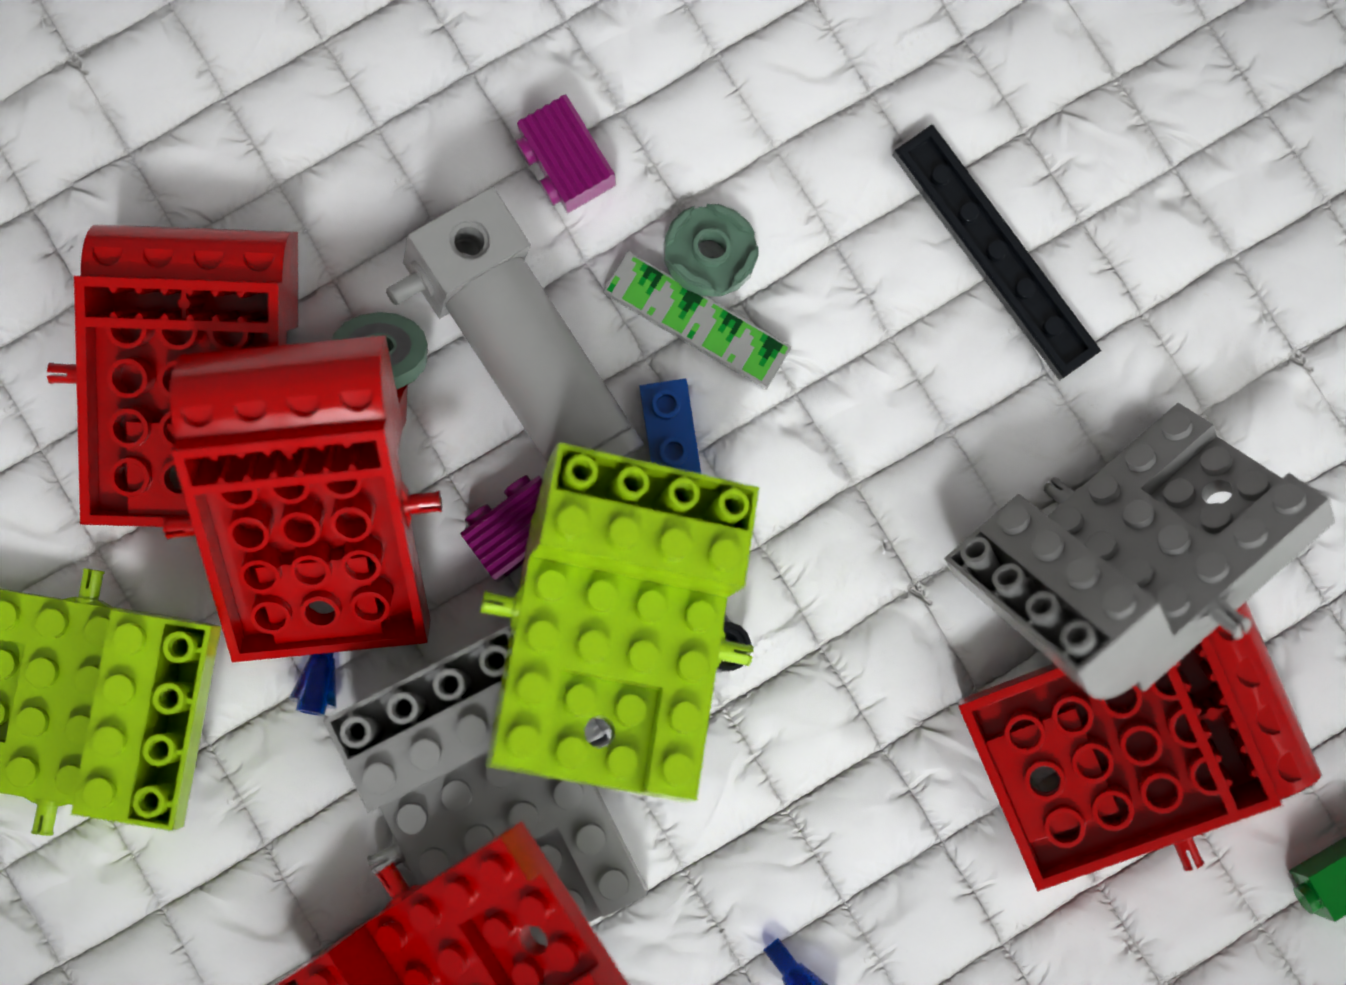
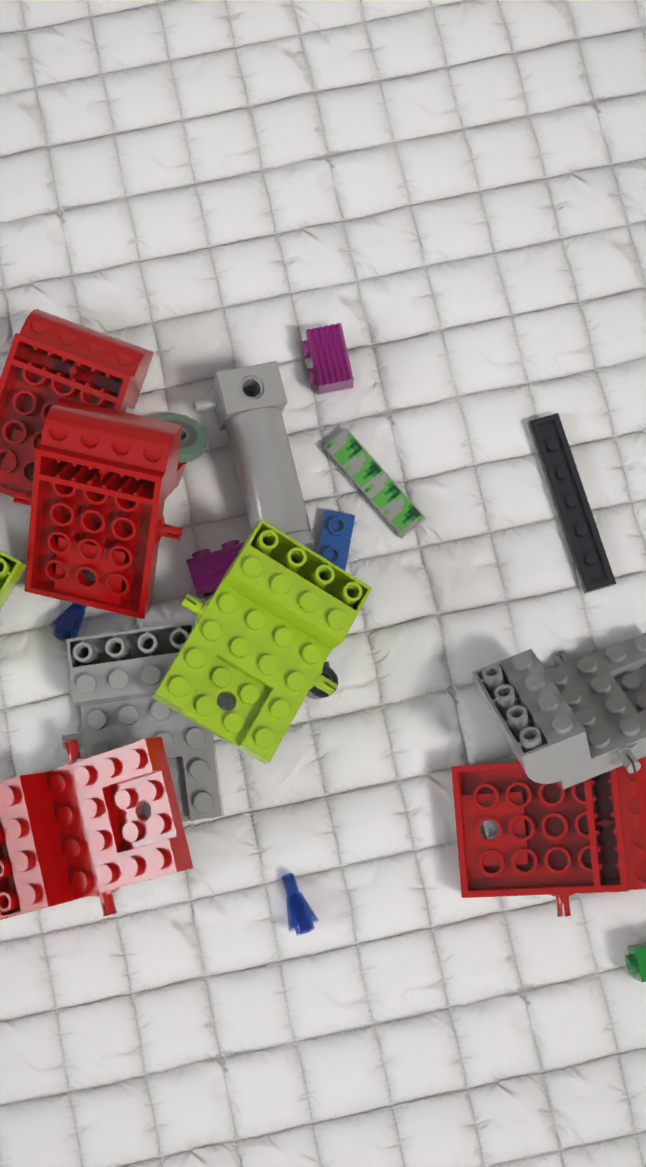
camera: 25 degrees right, 5 degrees down
(704, 274) = (394, 459): sand green tile -> none

